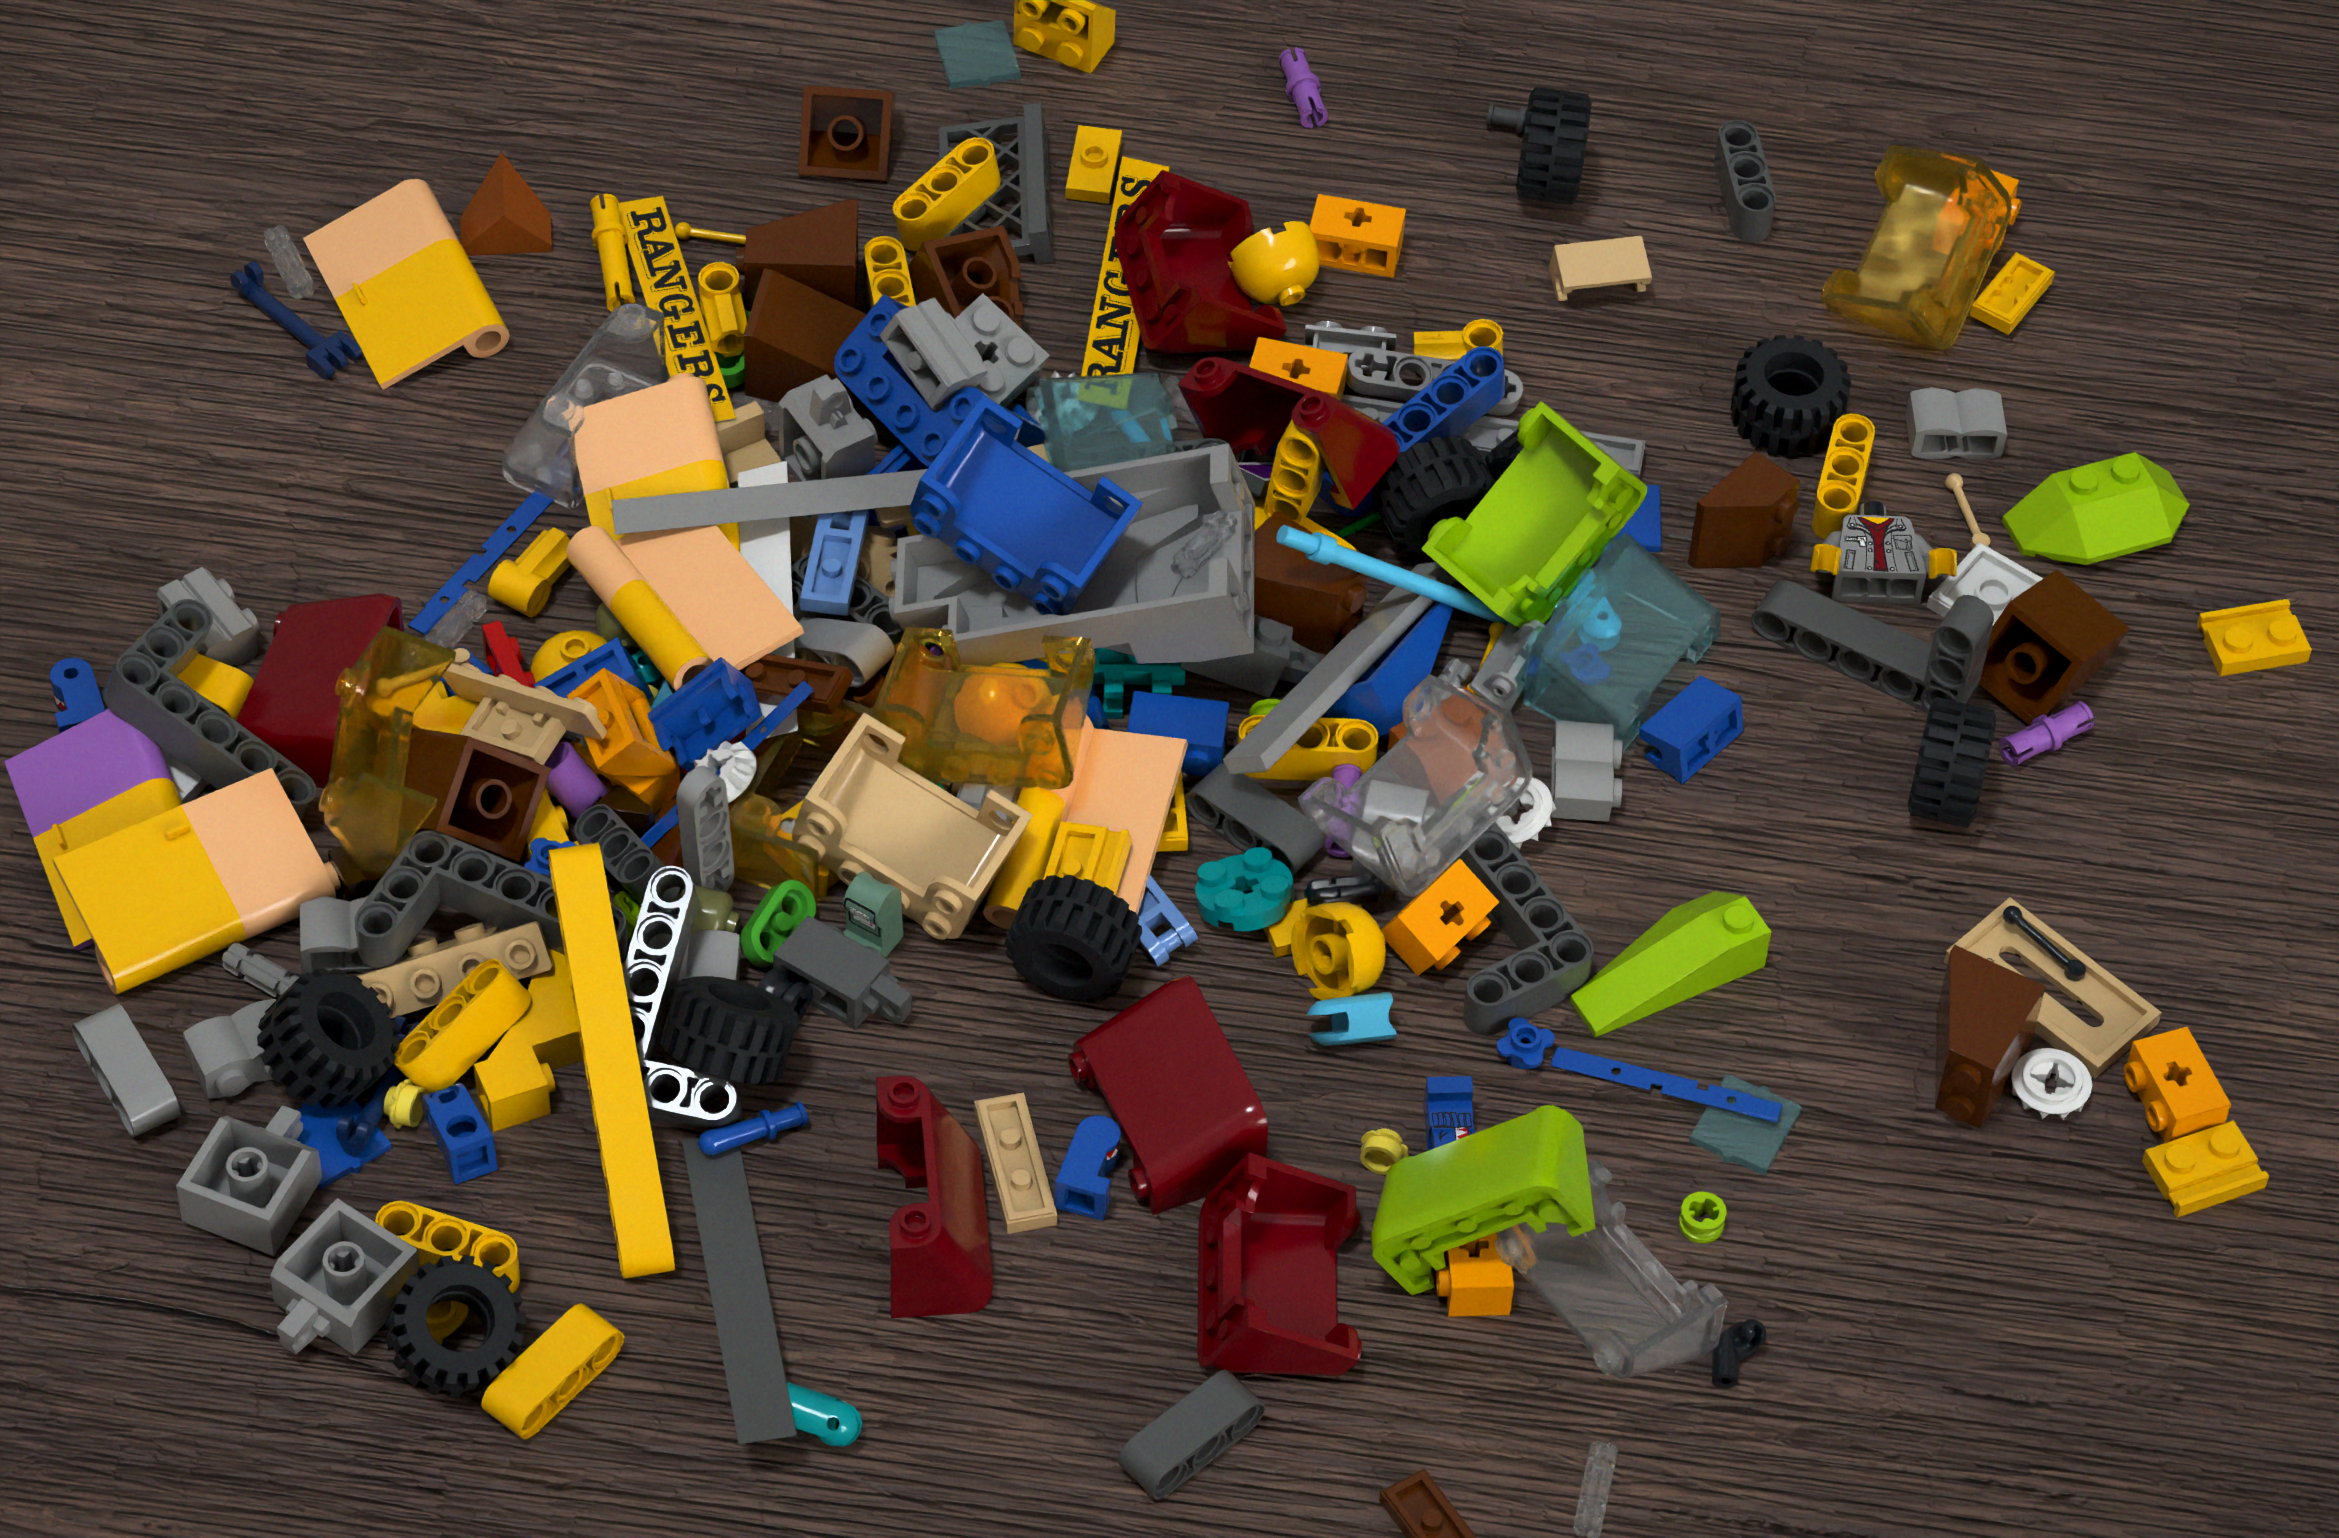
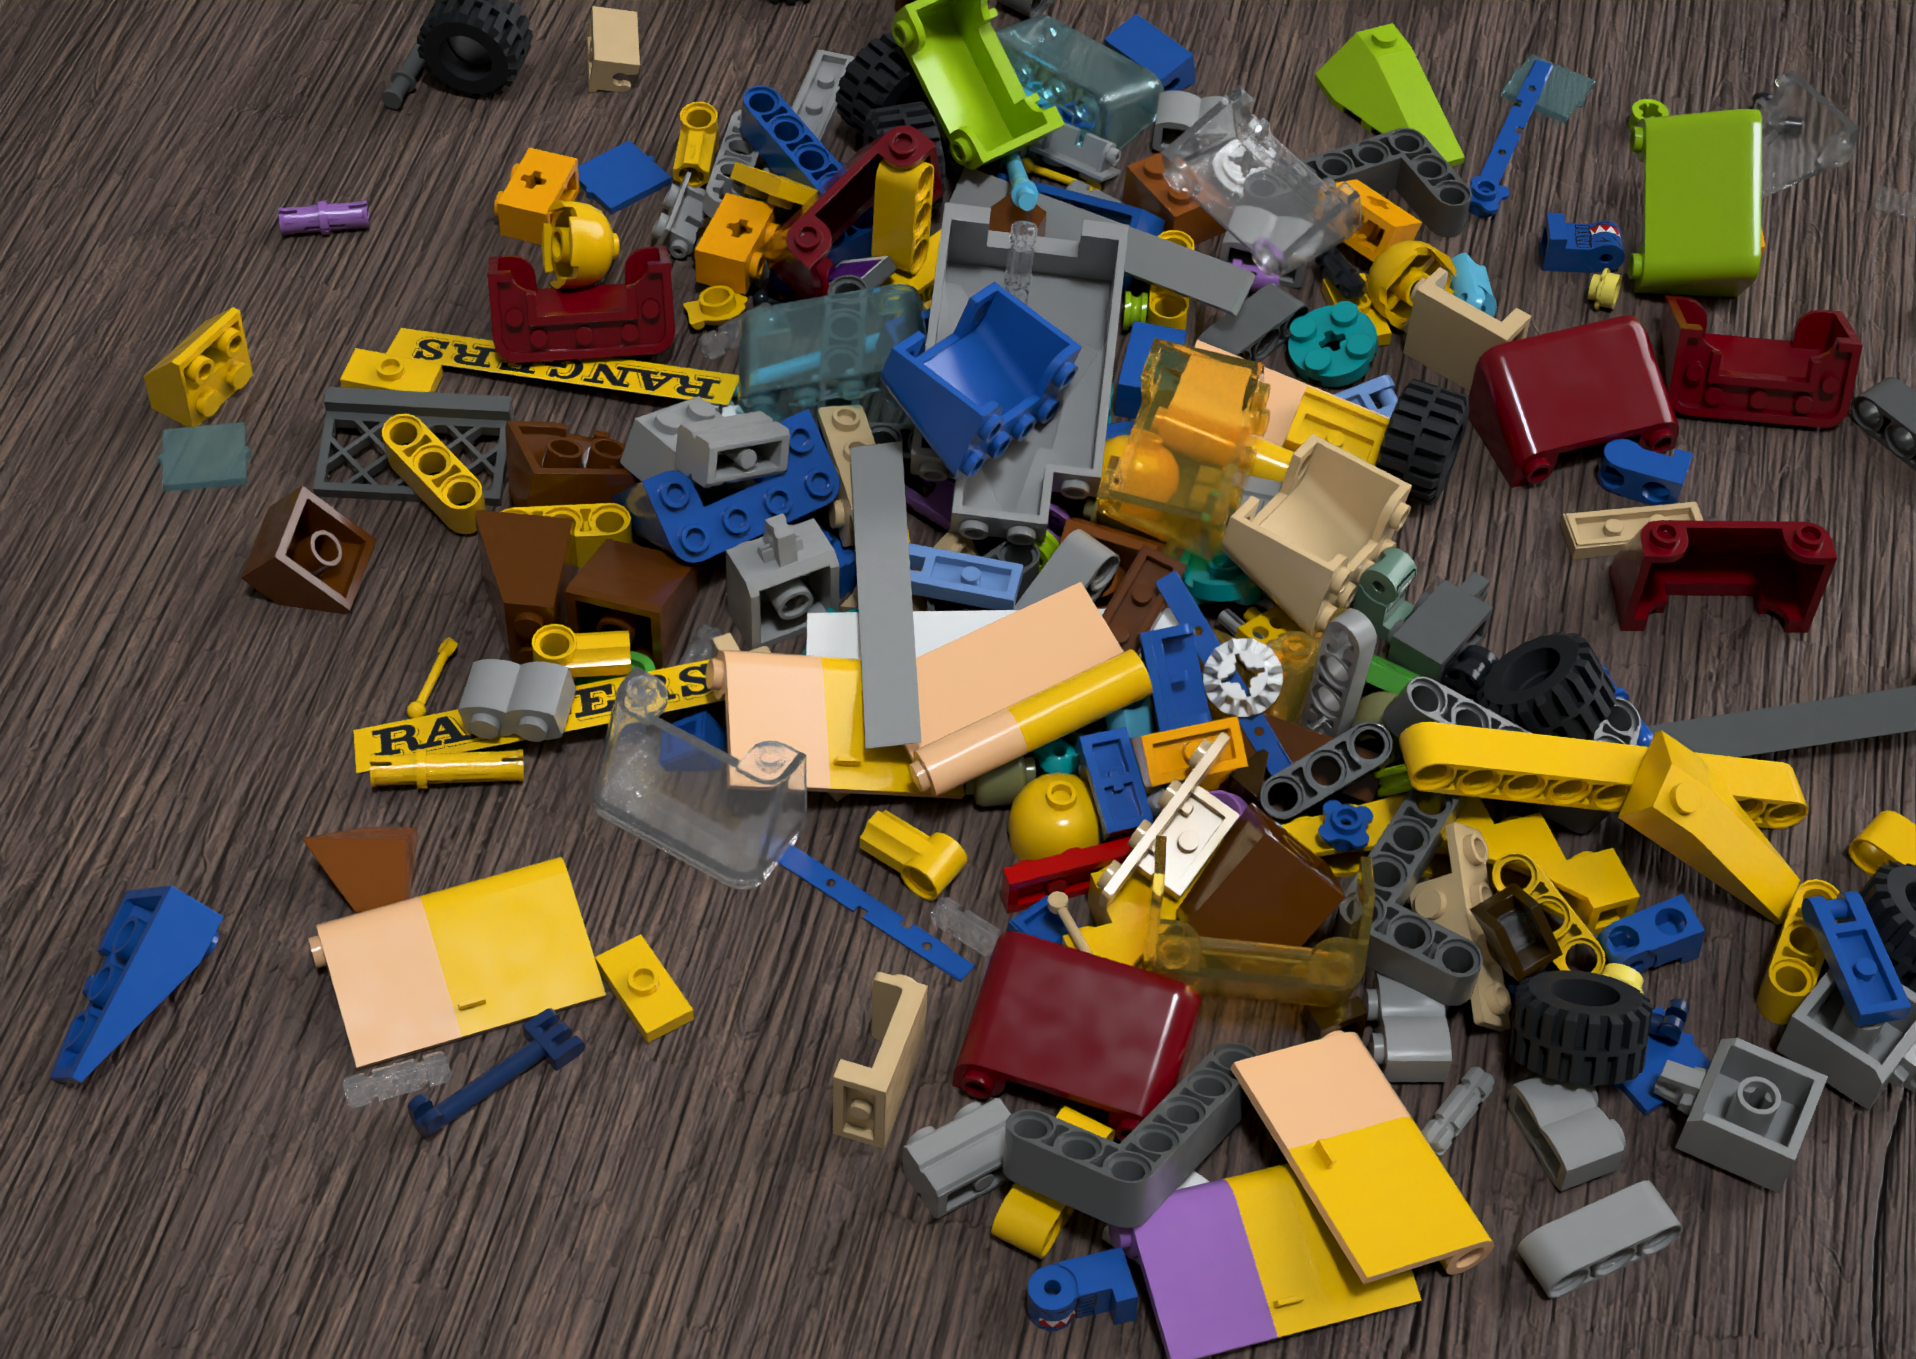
camera: 85 degrees left, 0 degrees up
(289, 552) = (870, 1098): none -> tan panel
(386, 408) = (644, 988): none -> yellow plate
(389, 92) = (148, 952): none -> blue wedge
(394, 1240) = (1856, 958): none -> blue plate
(414, 974) = (1517, 932): none -> dark brown window
(557, 1132) = (1699, 821): none -> yellow wedge
(669, 273) = (517, 699): none -> light grey brick
(1268, 960) = (1452, 333): none -> tan panel
(1368, 387) = (771, 187): none -> yellow plate
(1415, 302) = (621, 177): none -> blue piece

